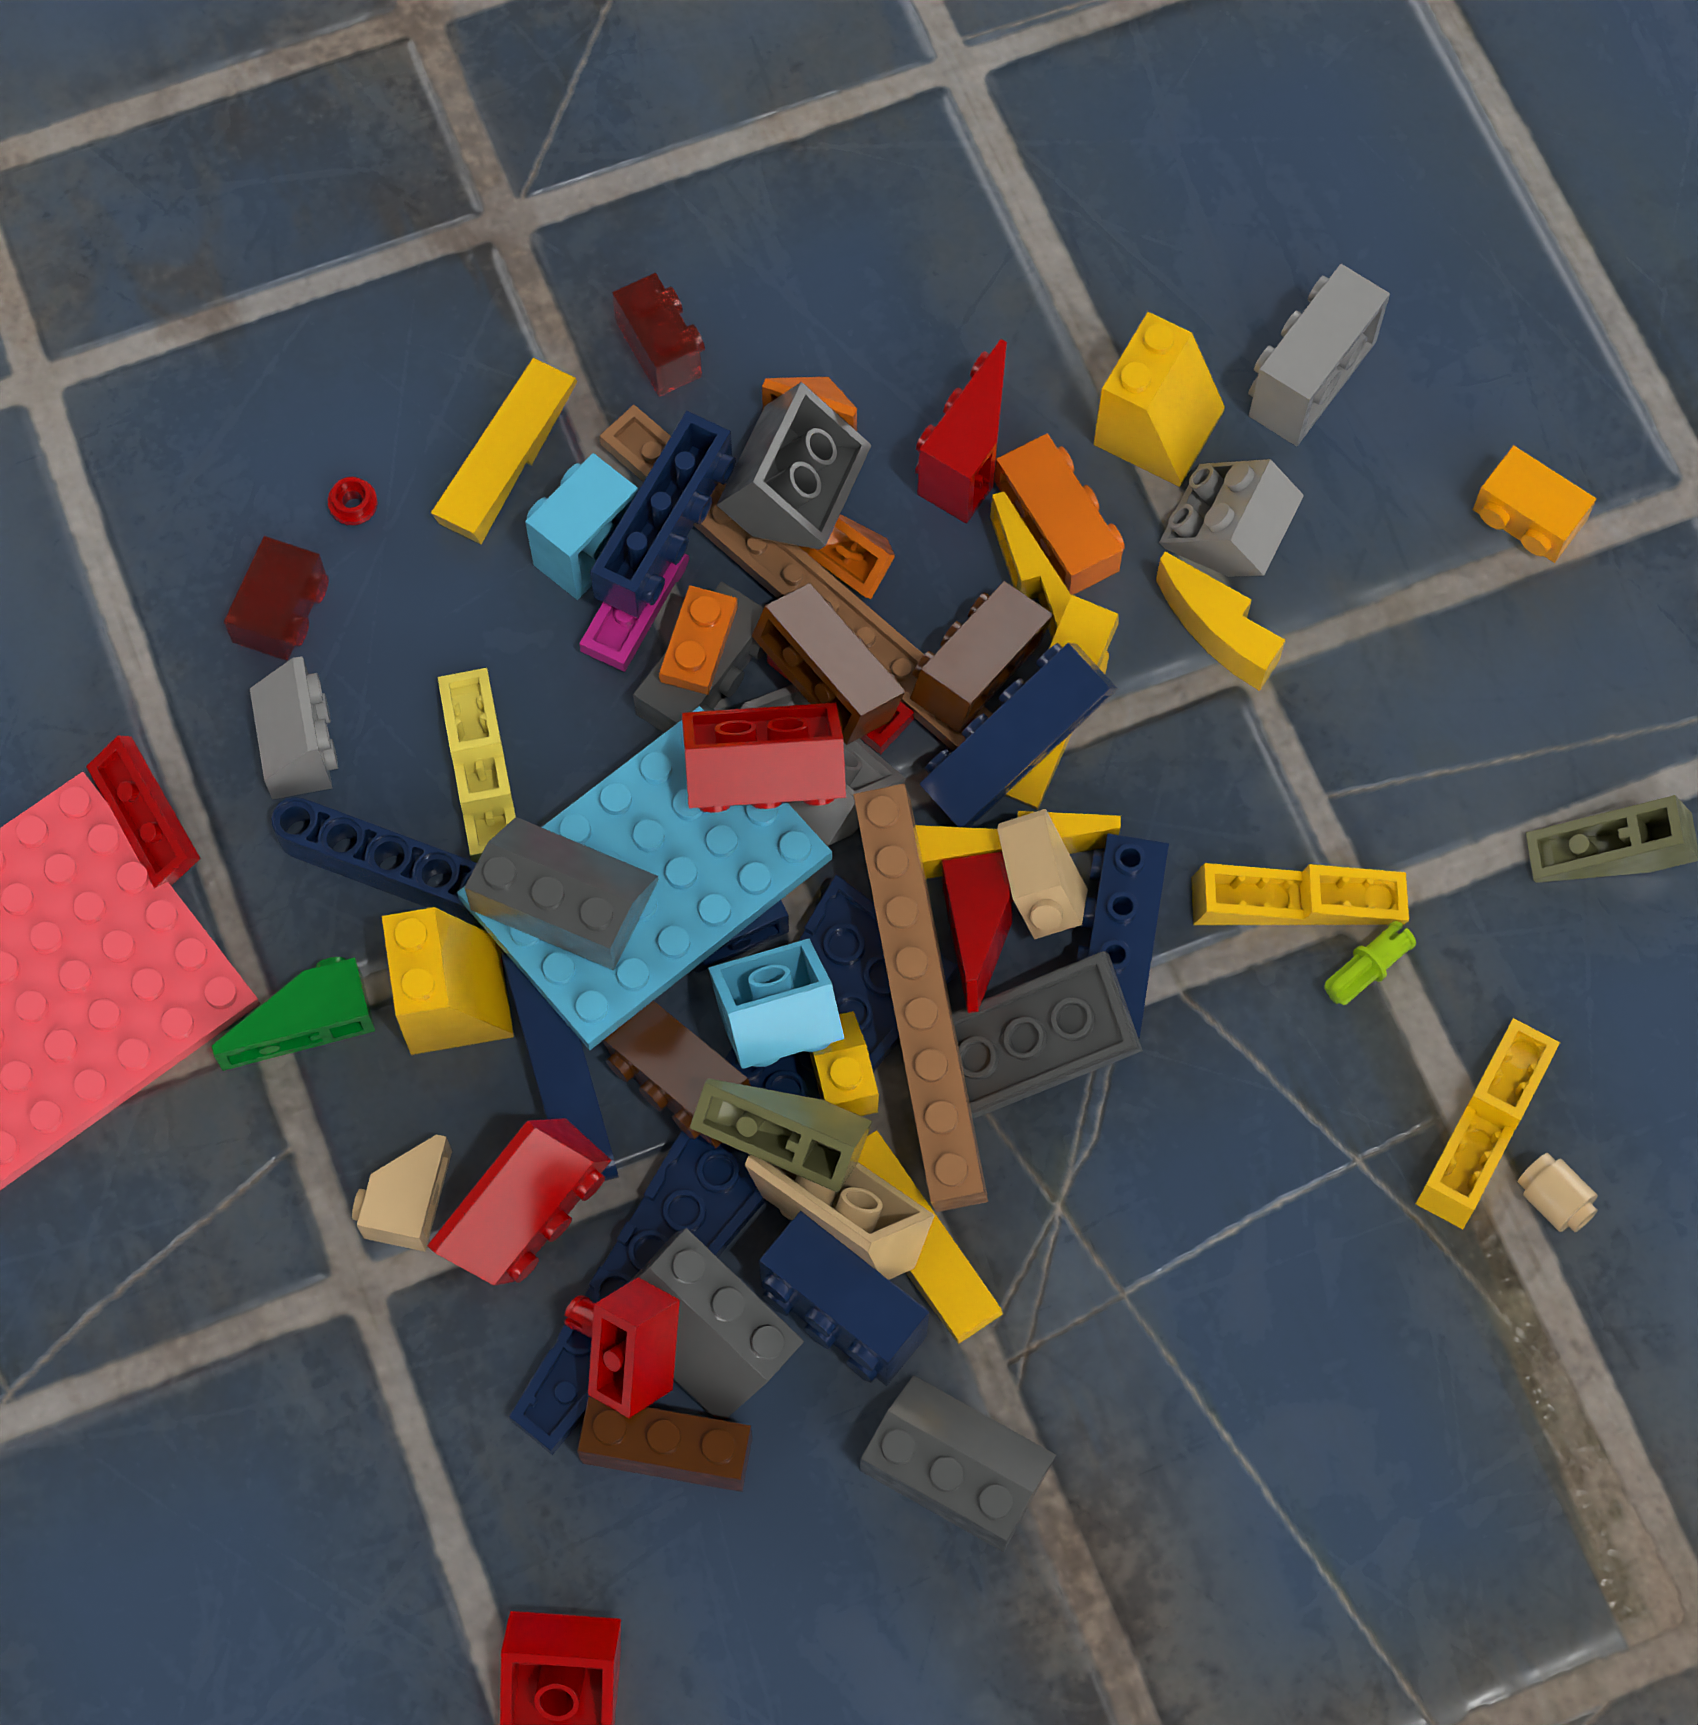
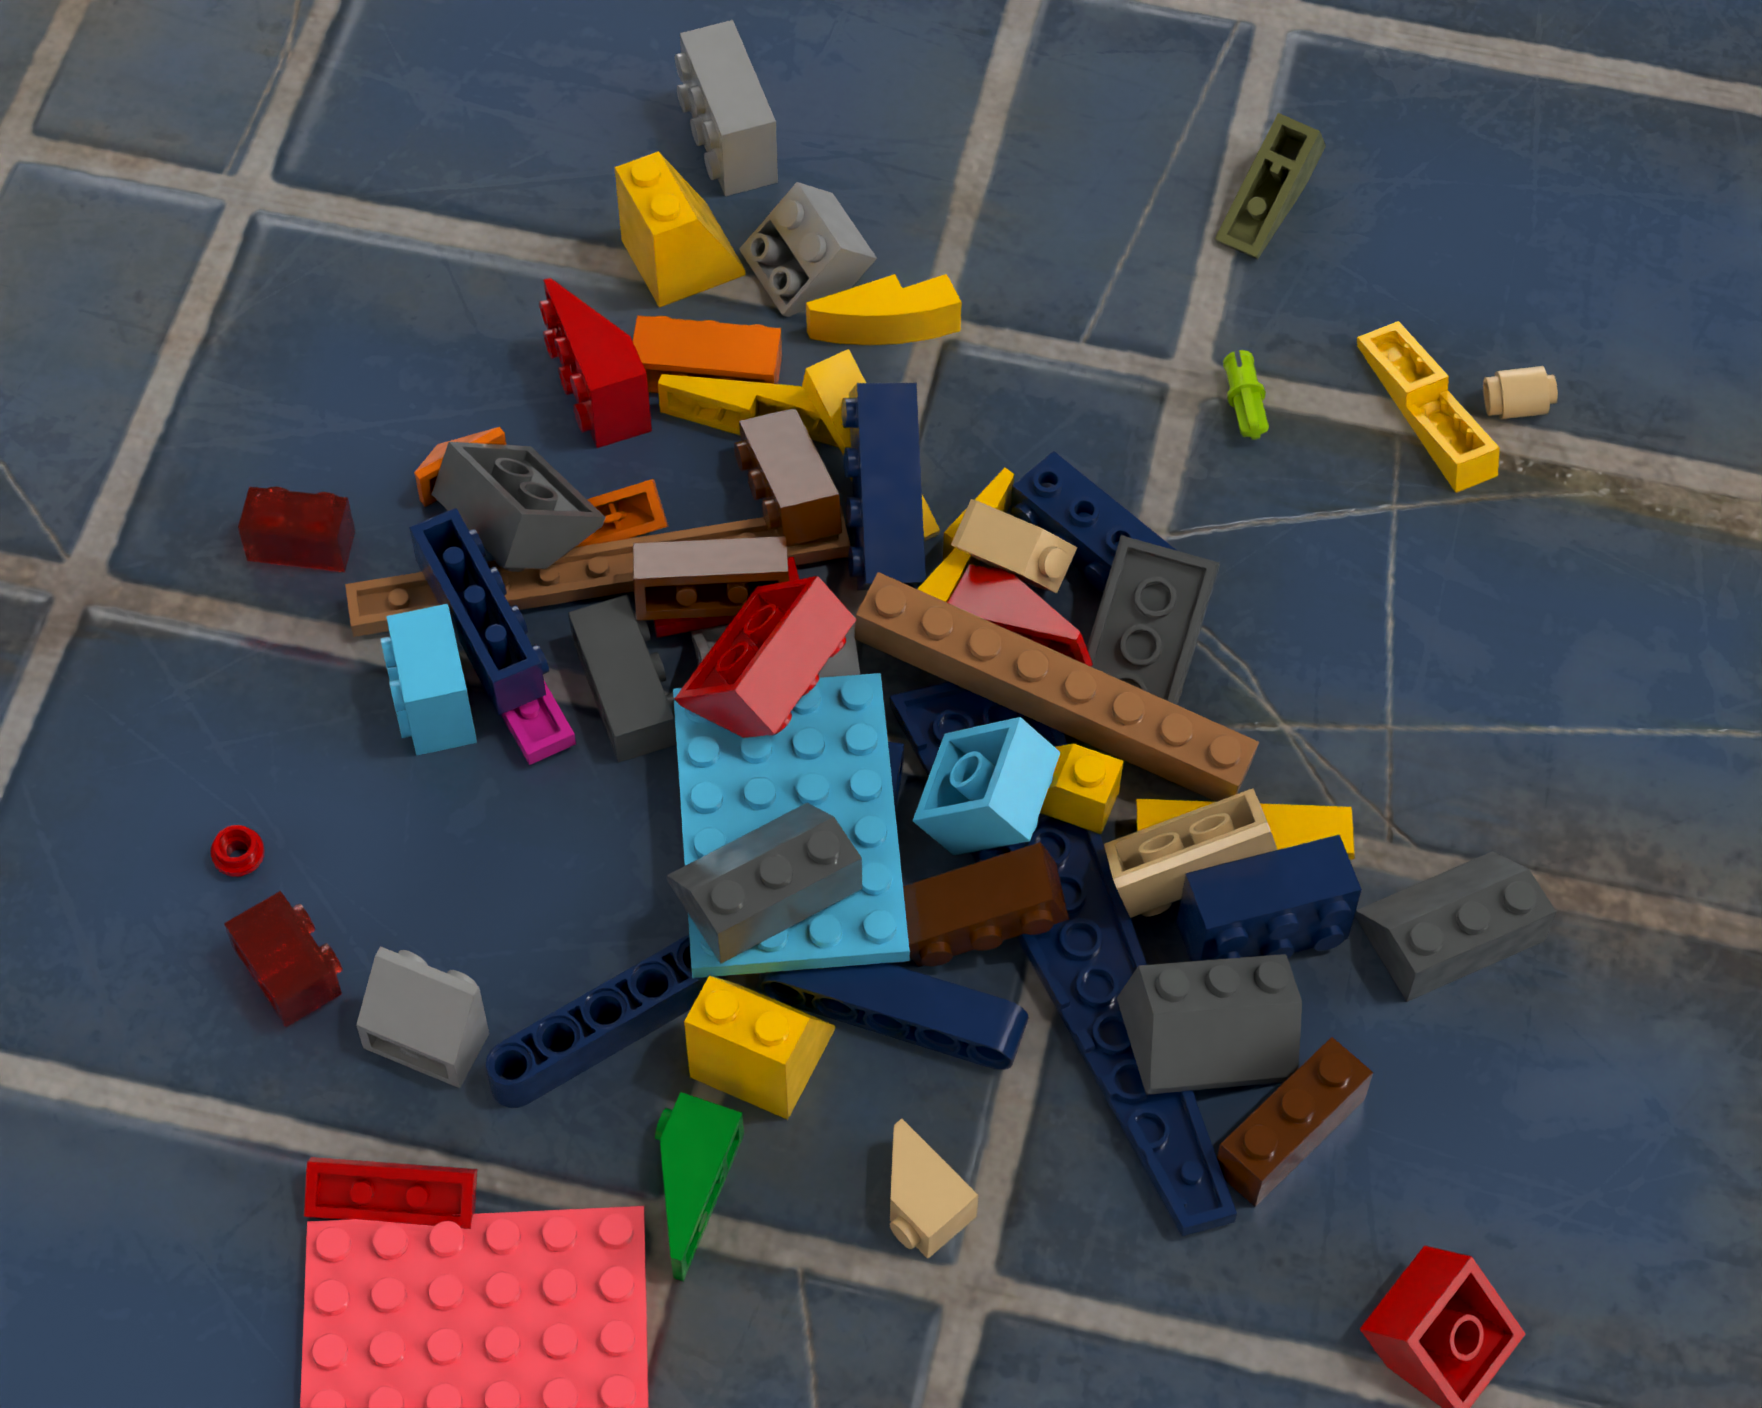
camera: 55 degrees left, 10 degrees down
(477, 756) = (571, 902): light yellow slope -> none
(503, 450) = (299, 707): yellow slope -> none
(522, 1202) = (1013, 1087): red slope -> none
(630, 1344) = (1203, 1074): red brick -> none
(698, 640) = (610, 656): orange plate -> none
(784, 1129) = (1111, 839): olive slope -> none
(1298, 897) = (1148, 415): yellow slope -> none
(1533, 504) = (960, 65): light orange brick -> none

